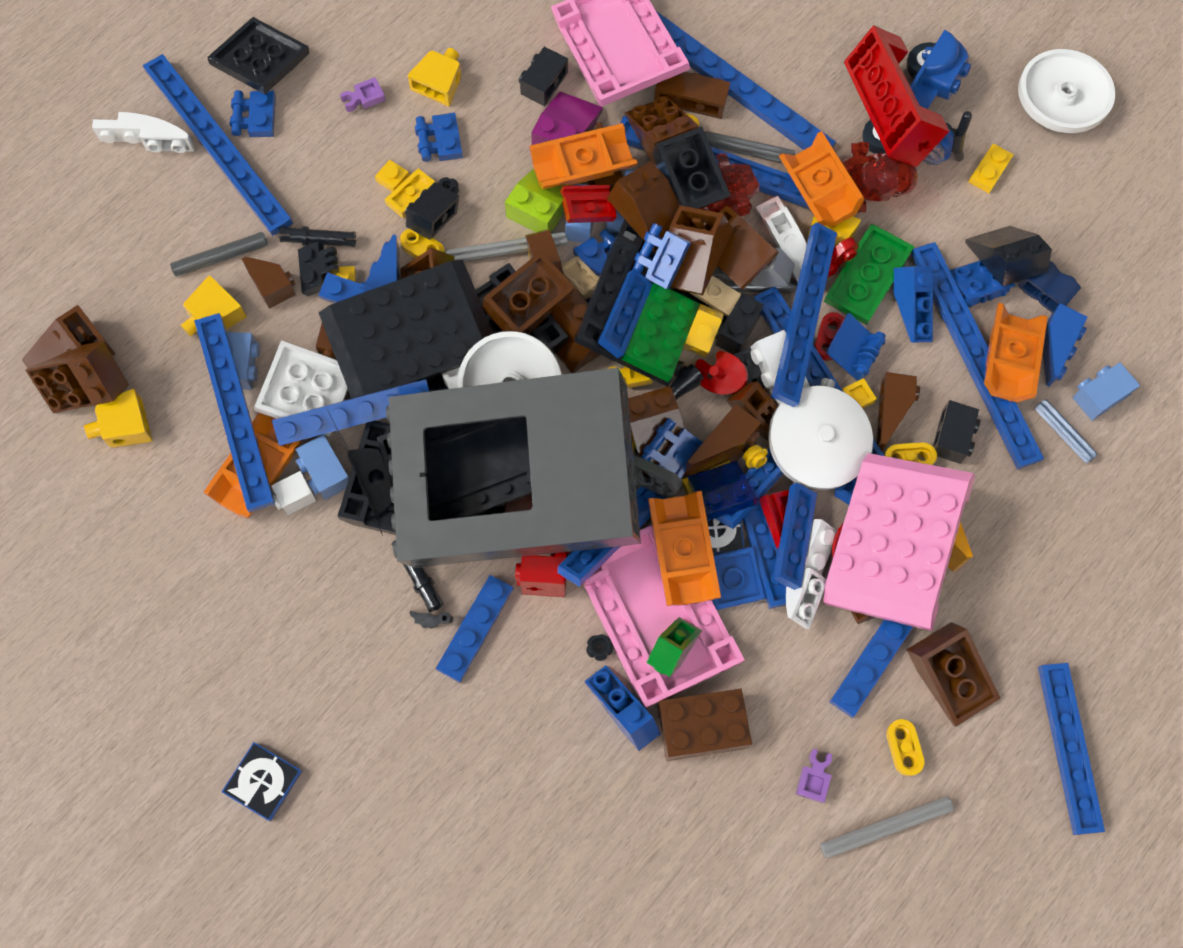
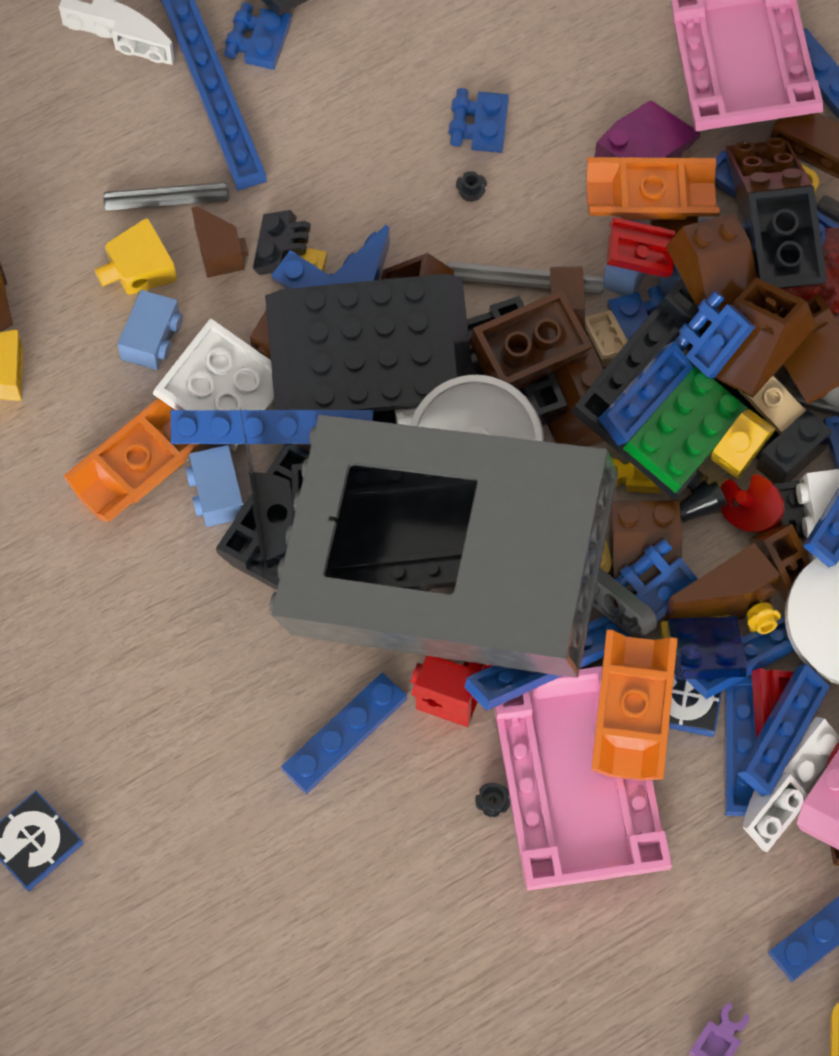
camera: 20 degrees right, 5 degrees down
(234, 413) = (128, 390): blue plate -> none
(292, 493) = (169, 507): white brick -> none
(308, 236) = (278, 201): black pin -> none
(366, 93) = (404, 45): medium lavender plate -> none
(391, 175) = (406, 154): yellow plate -> none
(408, 192) = (423, 180): yellow plate -> none
(419, 245) = (416, 246): yellow plate -> none
(424, 586) = (296, 663): black pin -> none
(431, 210) = (442, 208): black brick -> none
(431, 621) = (290, 706): black piece -> none
(437, 76) = (499, 44): yellow torso -> none
(534, 206) = (573, 234): lime slope -> none
(543, 76) = (635, 76): black brick -> none
(623, 708) = (500, 882): blue slope -> none
(673, 646) = (585, 822): green slope -> none
(704, 724) = (596, 931): reddish brown brick -> none
(738, 578) = (694, 765): blue tile -> none

